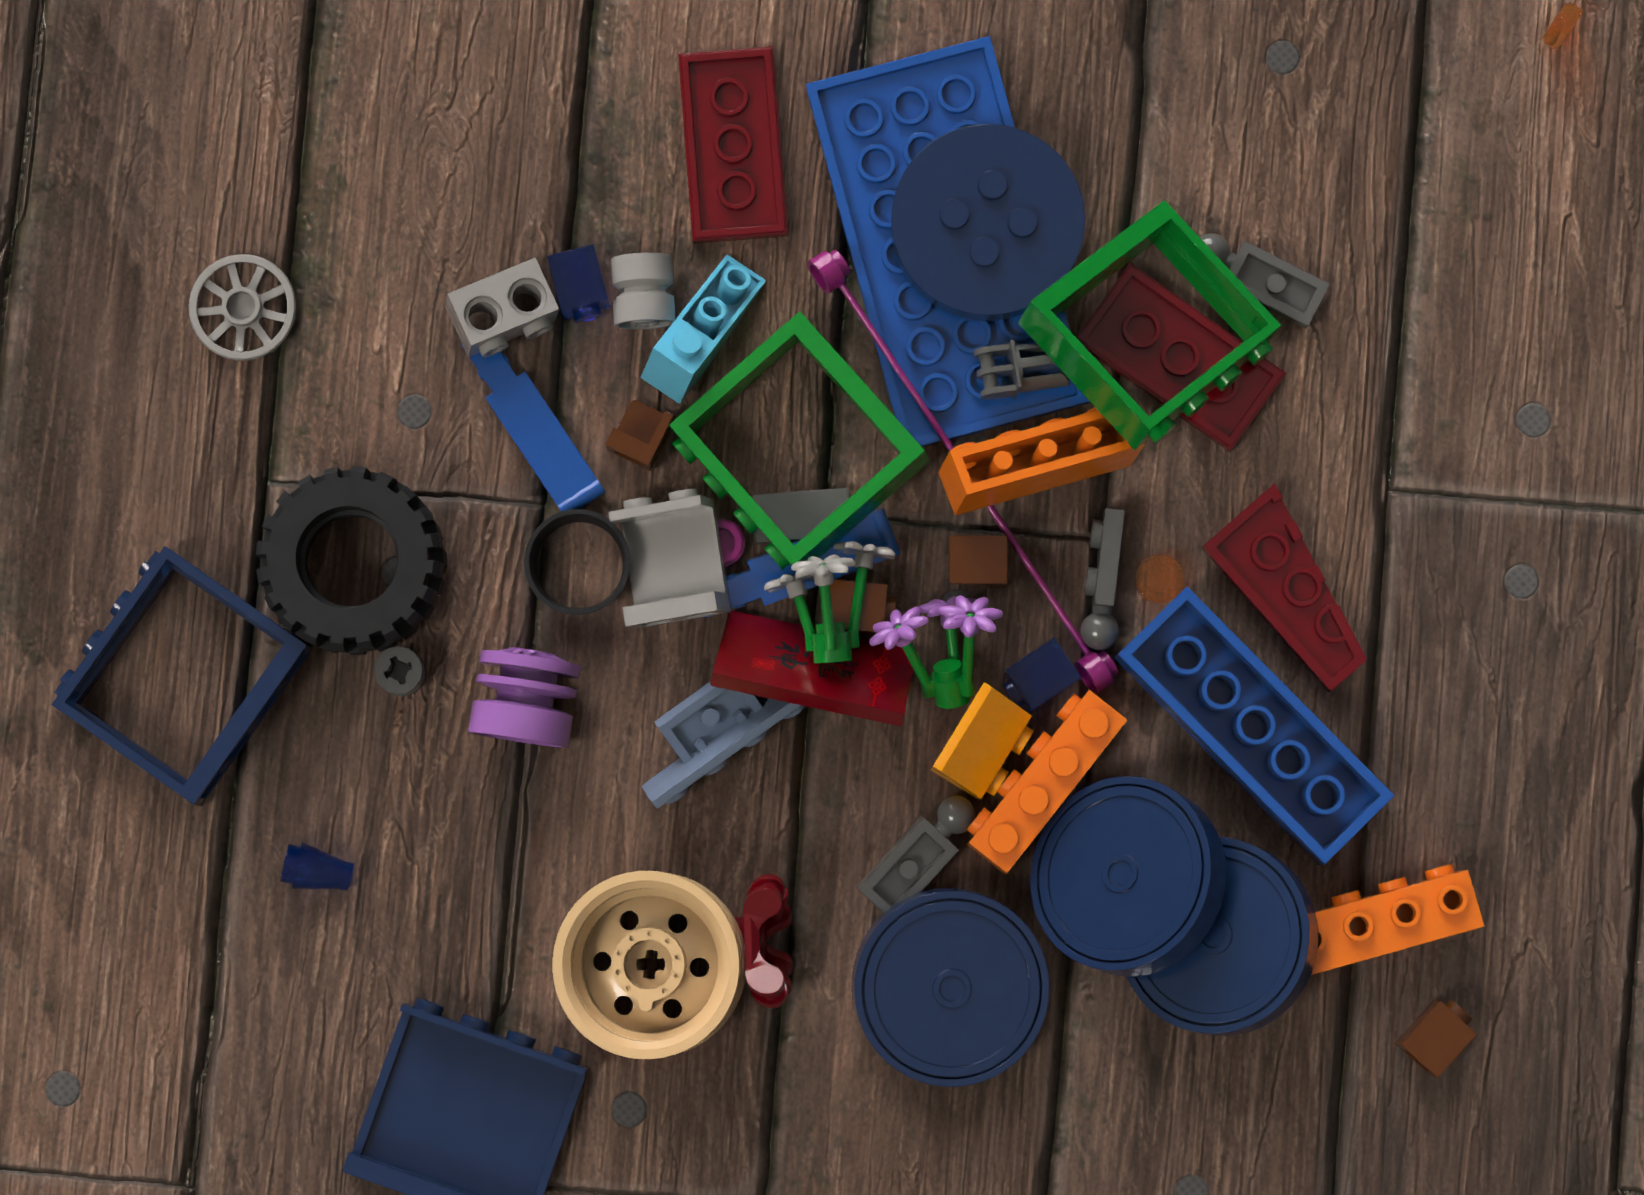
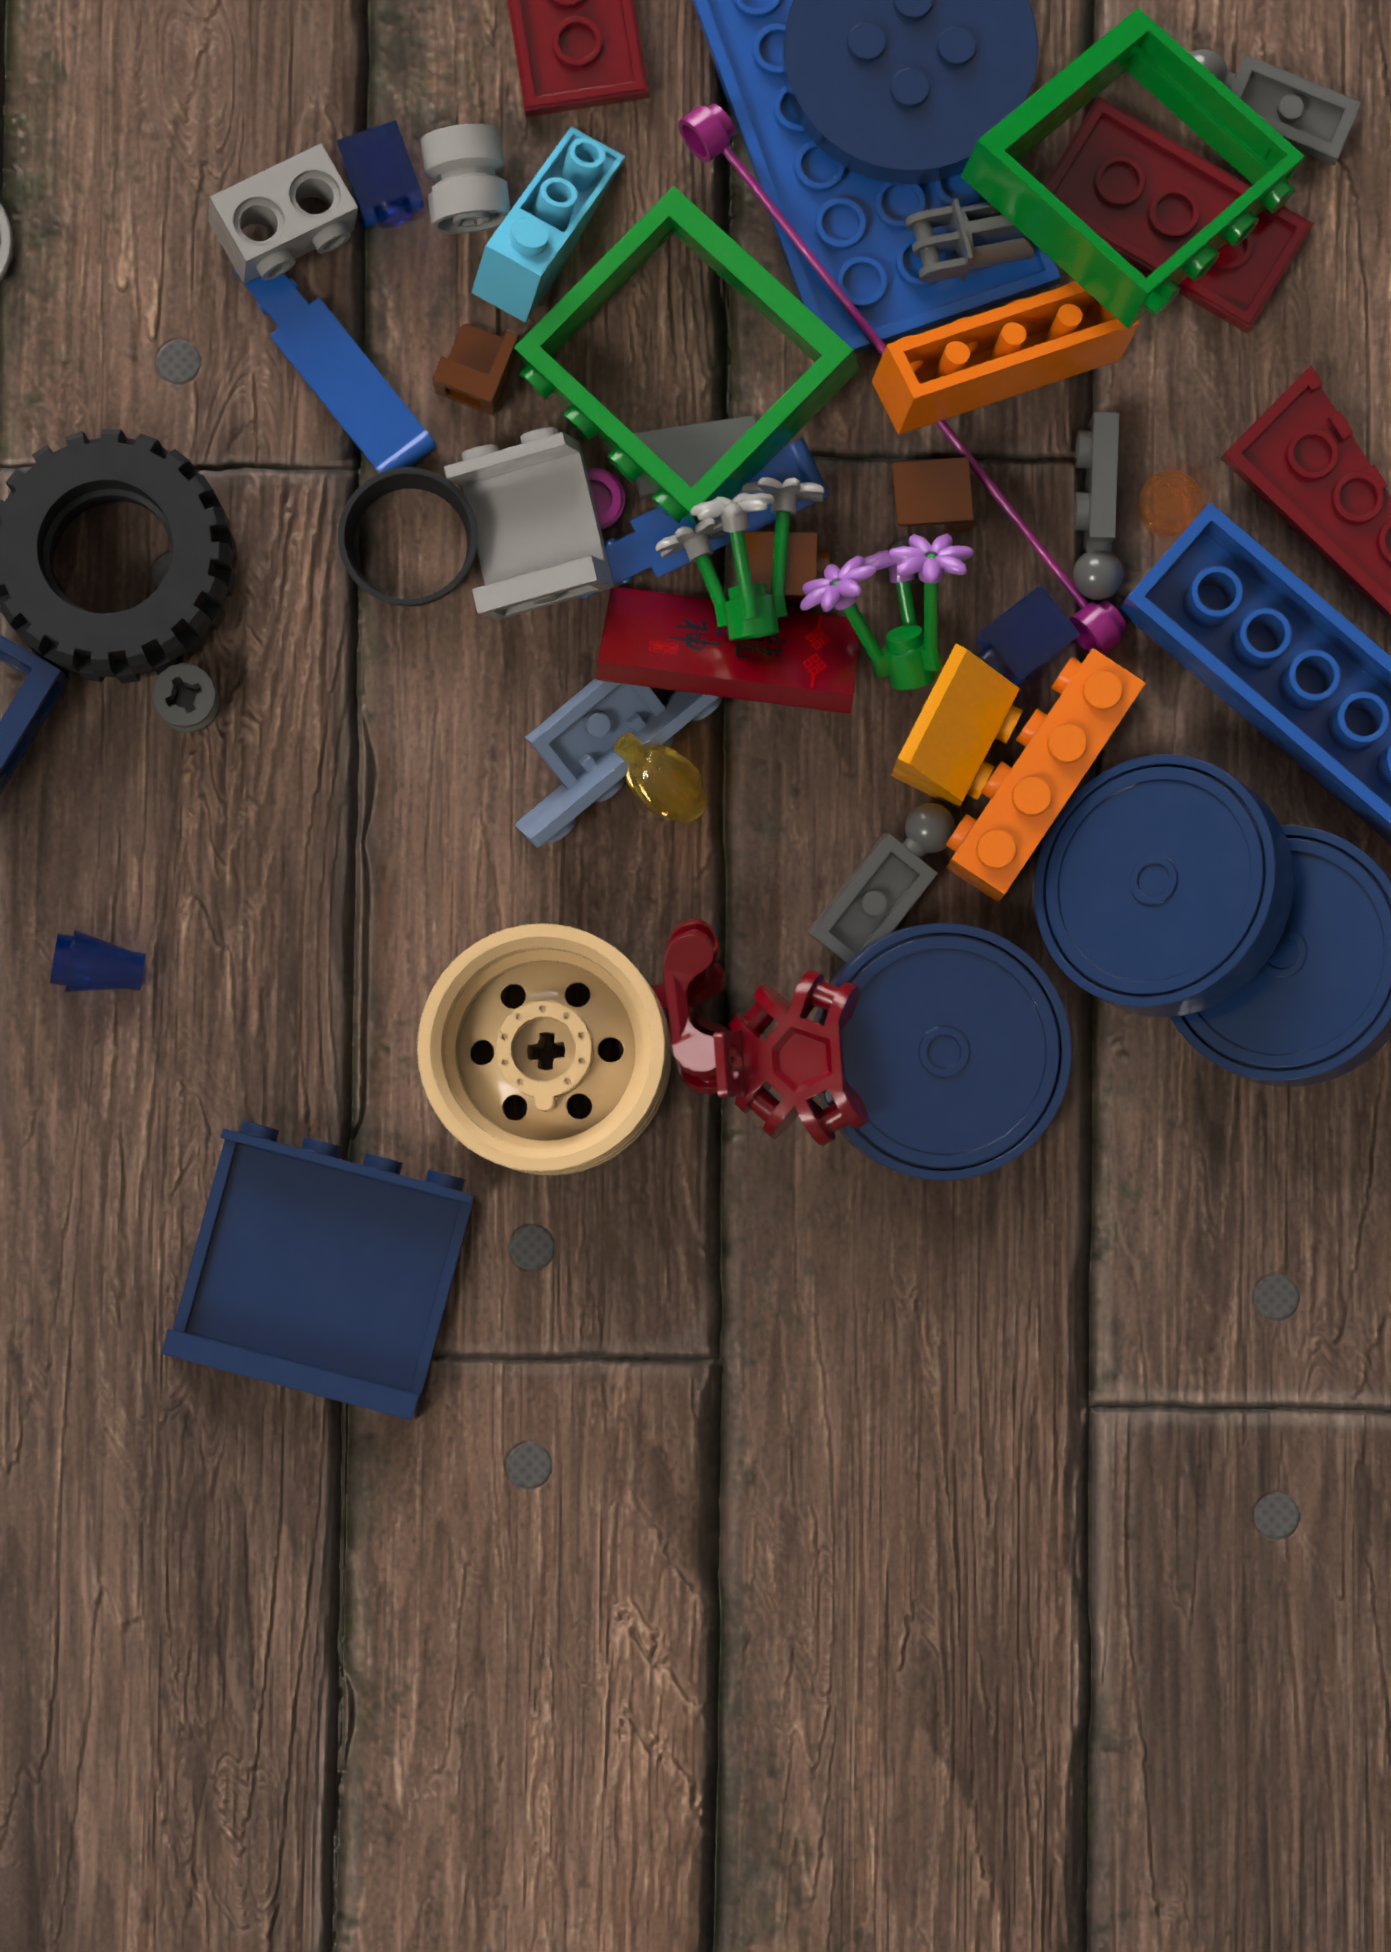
camera: 10 degrees left, 0 degrees up
(524, 698) = (353, 717): medium lavender wheel -> none
(755, 763) = (662, 779): none -> clear yellow plant
(837, 988) = (795, 1059): none -> dark red piece

